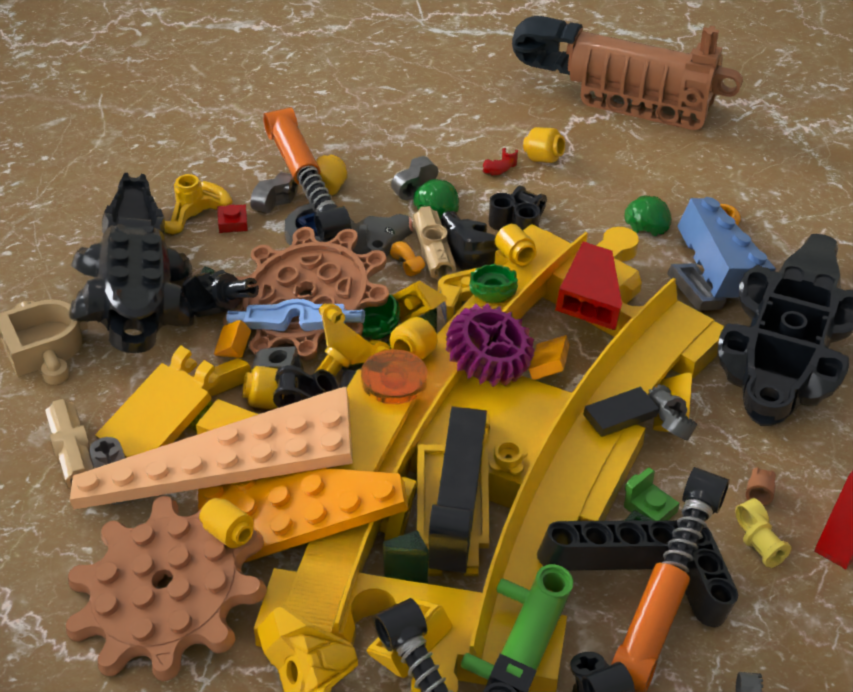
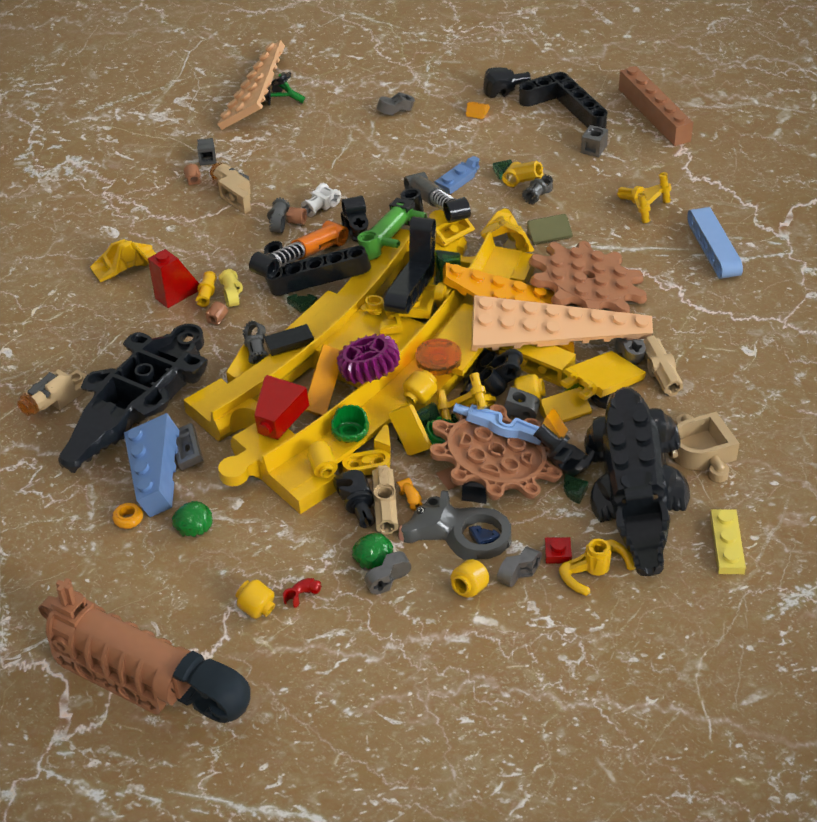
camera: 170 degrees left, 0 degrees up
(39, 240) = (727, 541): none -> light yellow plate
(226, 522) = (551, 272): yellow brick -> none
(283, 129) = (509, 596): piece -> none
(518, 208) = (304, 525): black piece -> none
(648, 498) = (288, 312): bright green bracket -> none
(801, 532) = (206, 289): none -> yellow pin

